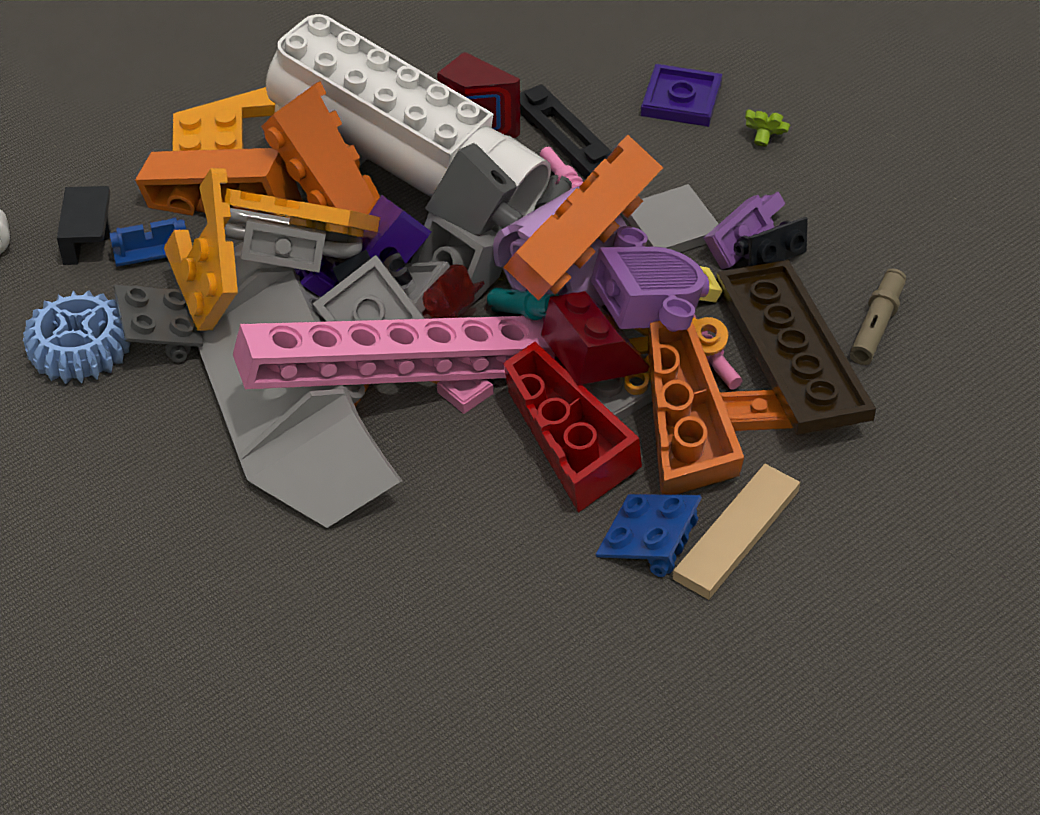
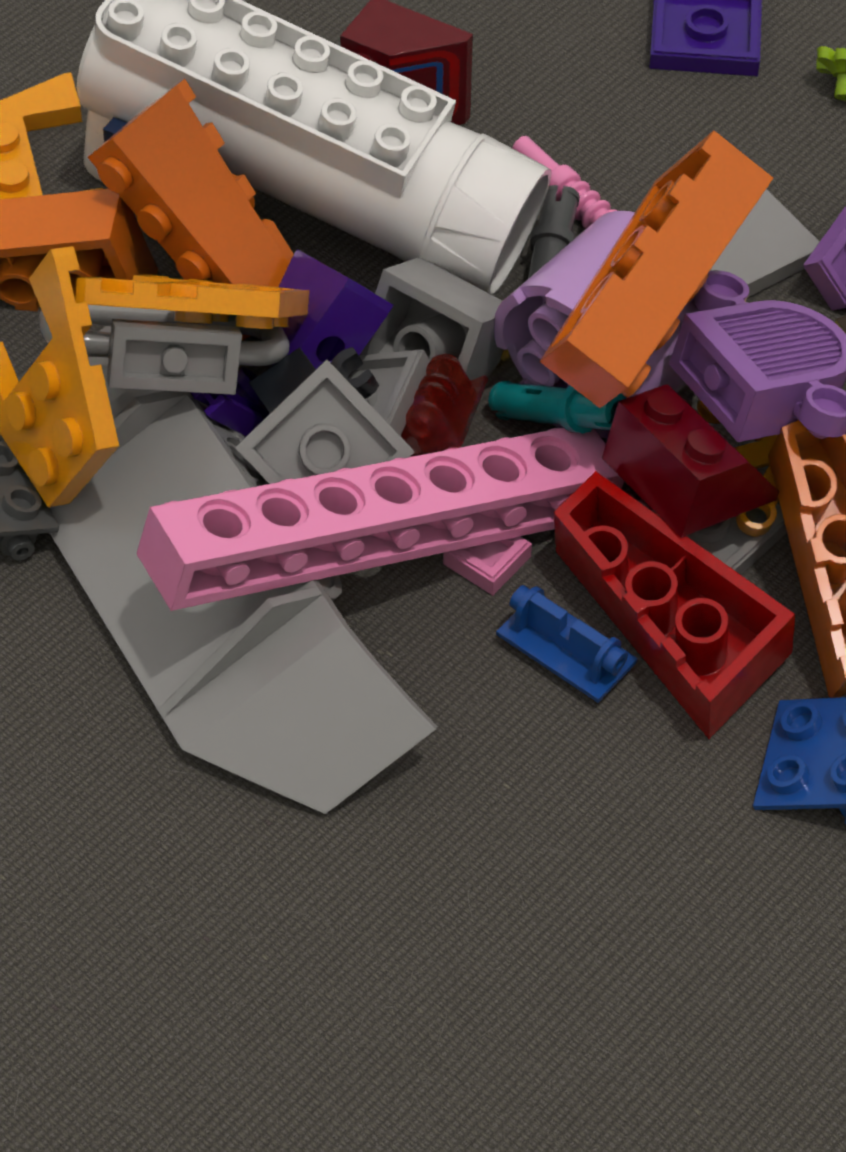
camera: 10 degrees left, 5 degrees up
(474, 193) = (455, 238): dark grey torso -> none
(498, 444) = (565, 644): none -> blue hinge
(538, 104) = (593, 152): black container -> none

